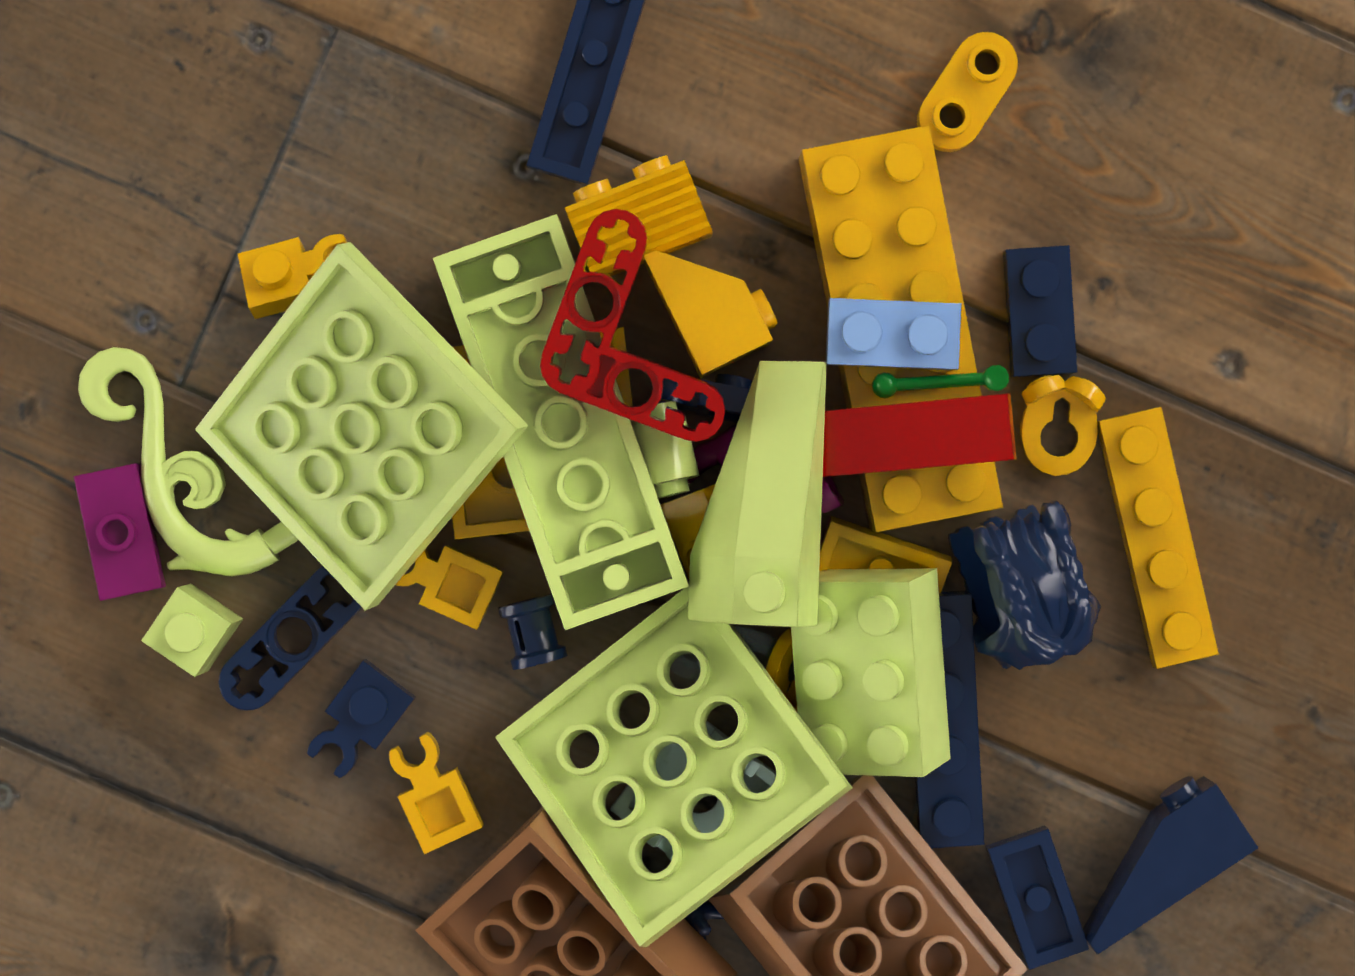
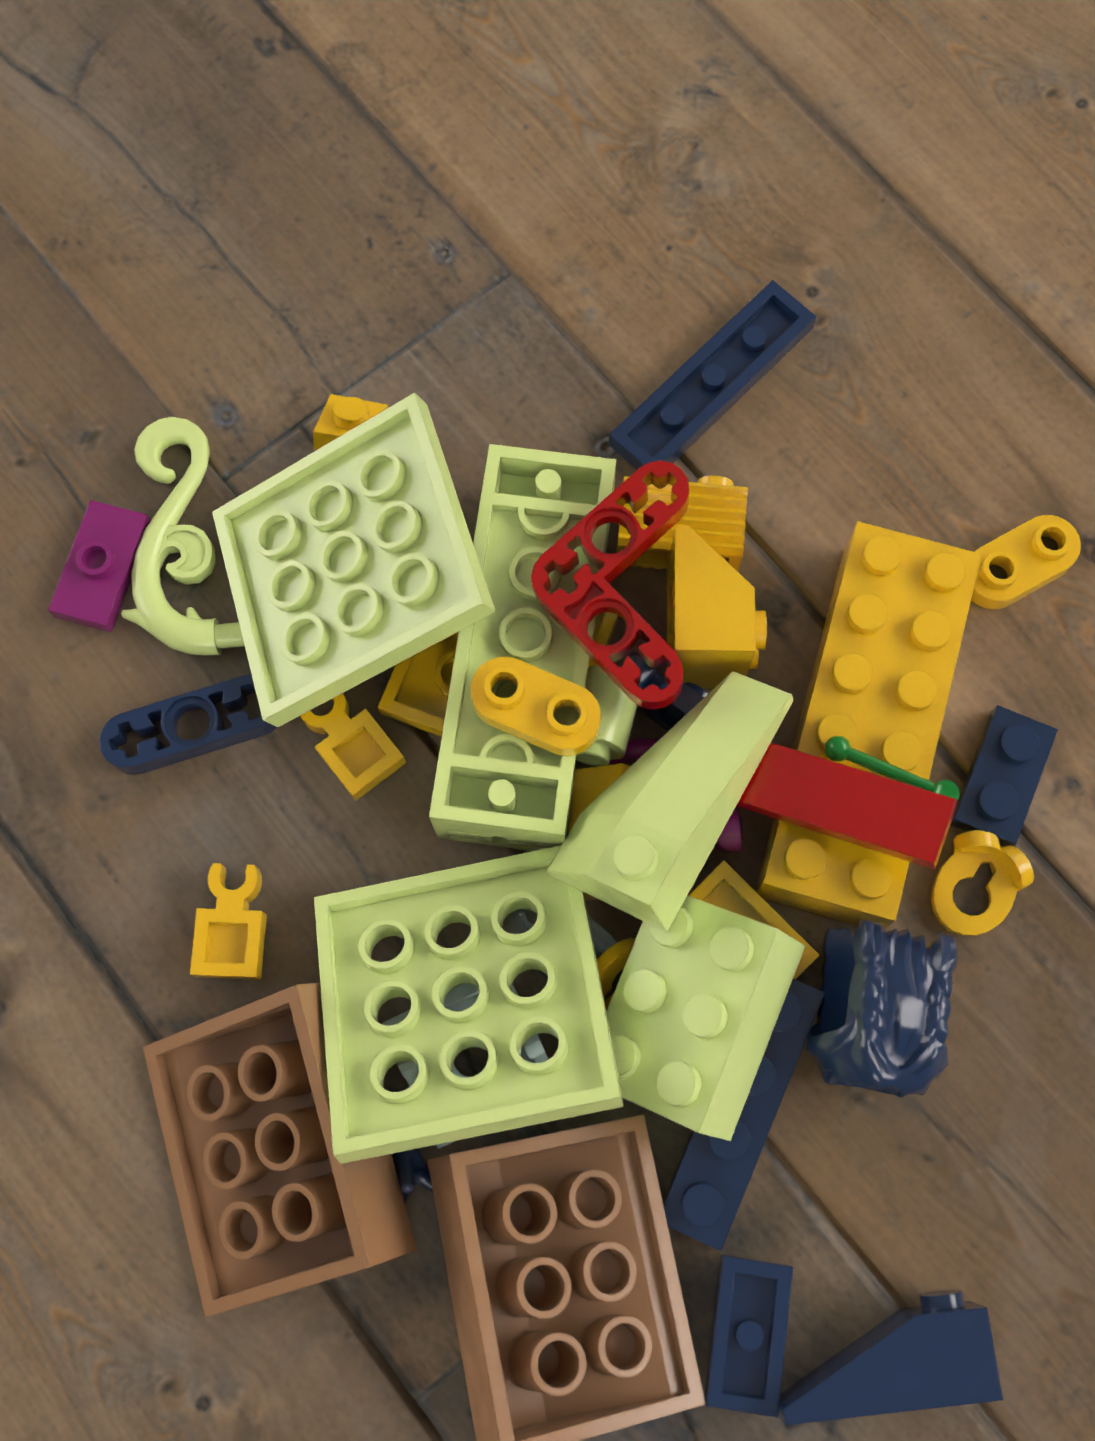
camera: 30 degrees right, 15 degrees down
(192, 629) = (107, 669): yellowish green brick -> none
(365, 710) = (215, 822): dark blue plate -> none
(532, 632) = (400, 825): dark blue bush -> none
(606, 488) = (533, 705): none -> yellow plate
(893, 334) = (868, 707): light blue plate -> none
(1157, 538) = (1024, 1040): yellow plate -> none

